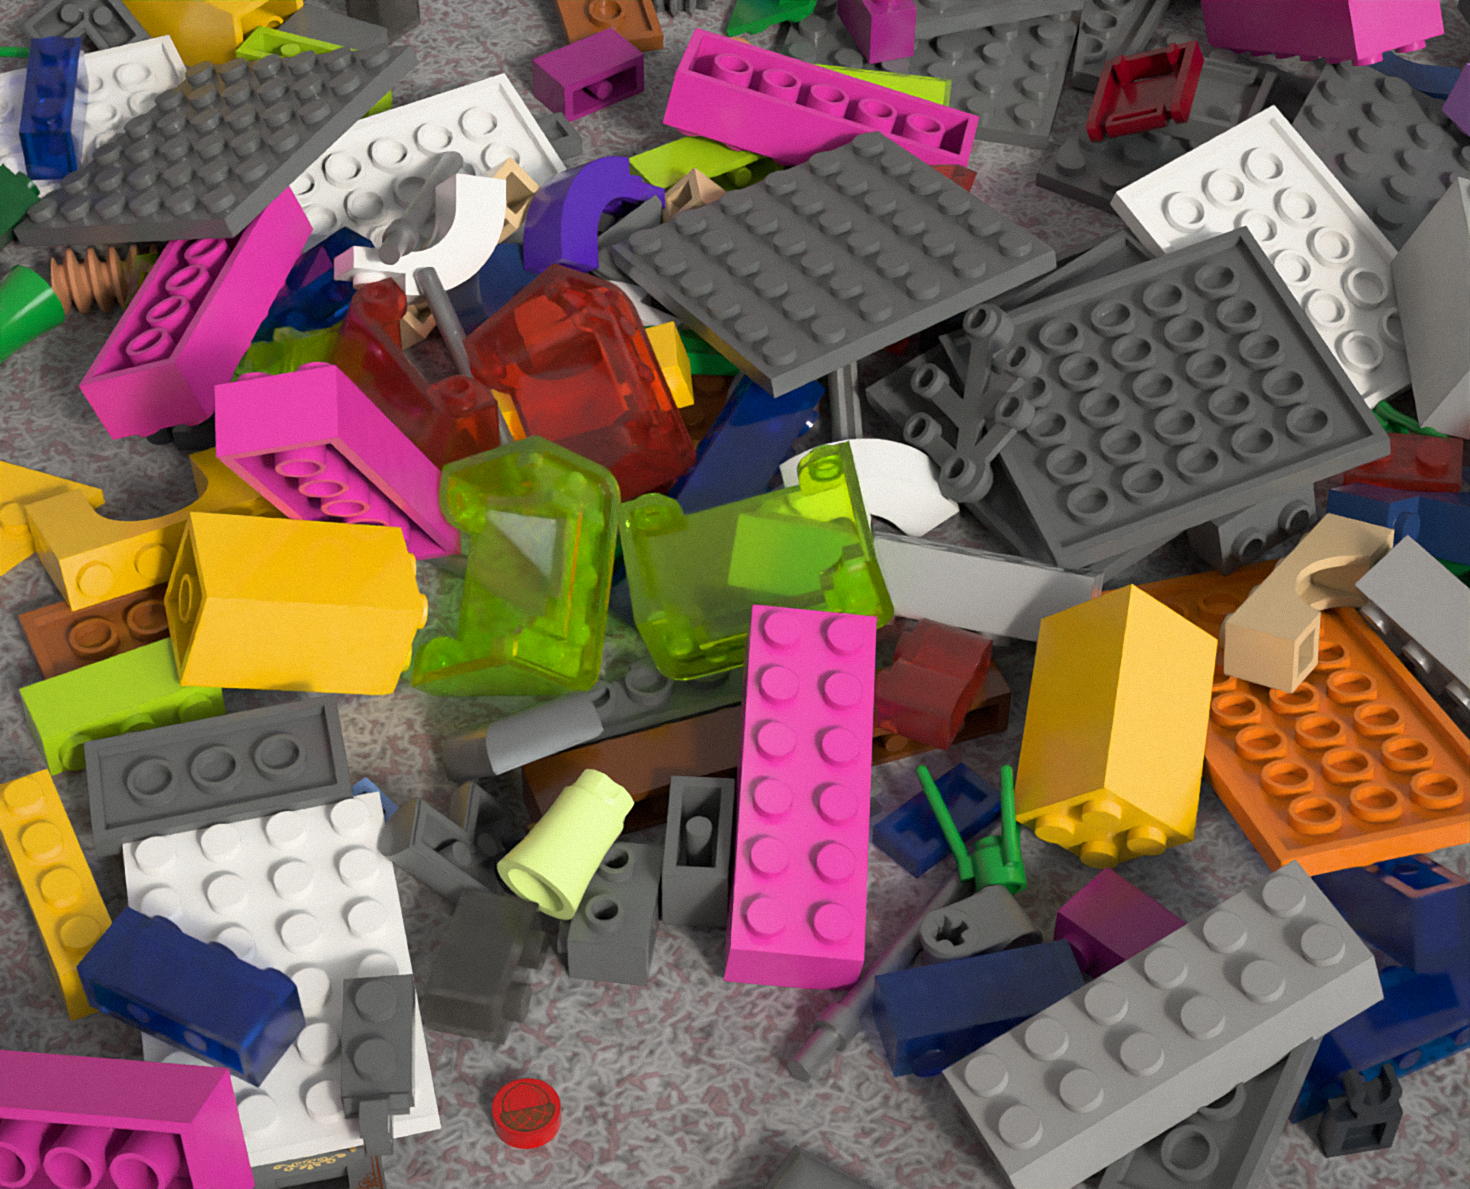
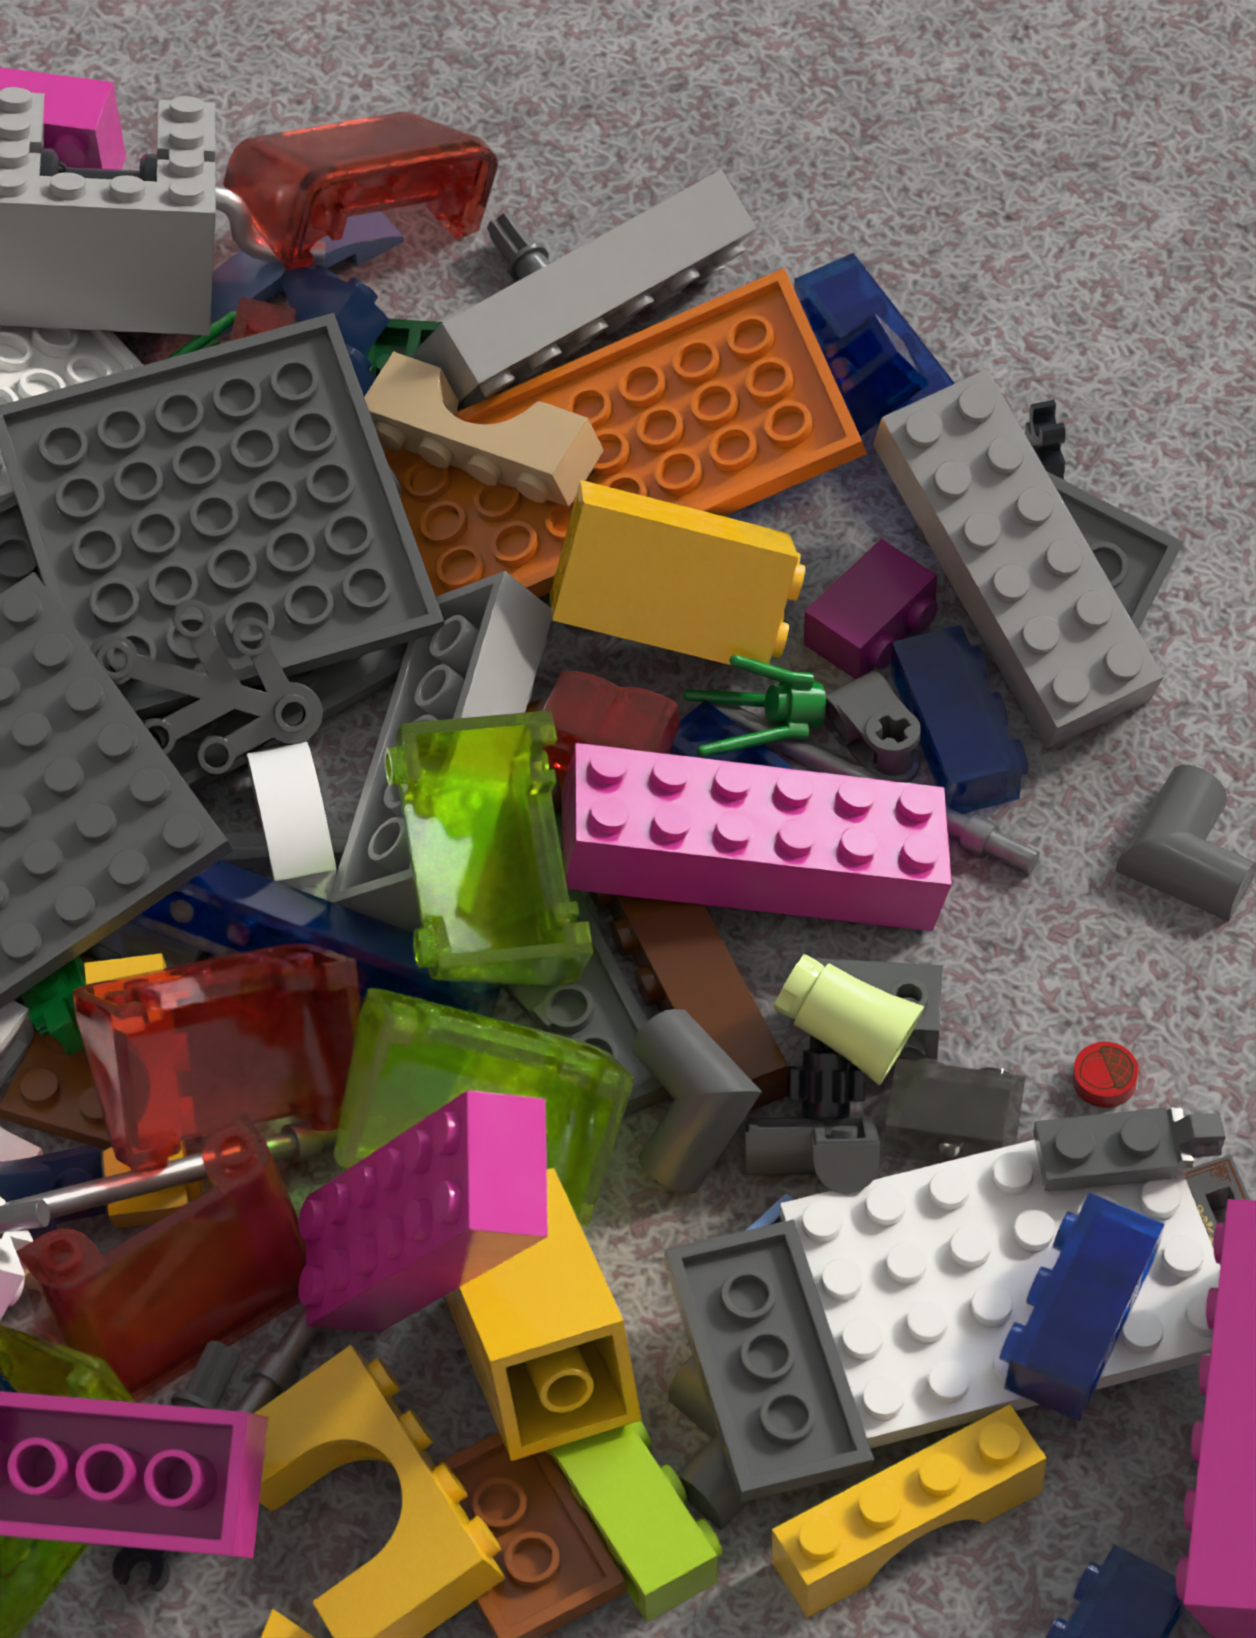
camera: 90 degrees left, 10 degrees up
(698, 851) = (800, 922): dark grey brick -> none

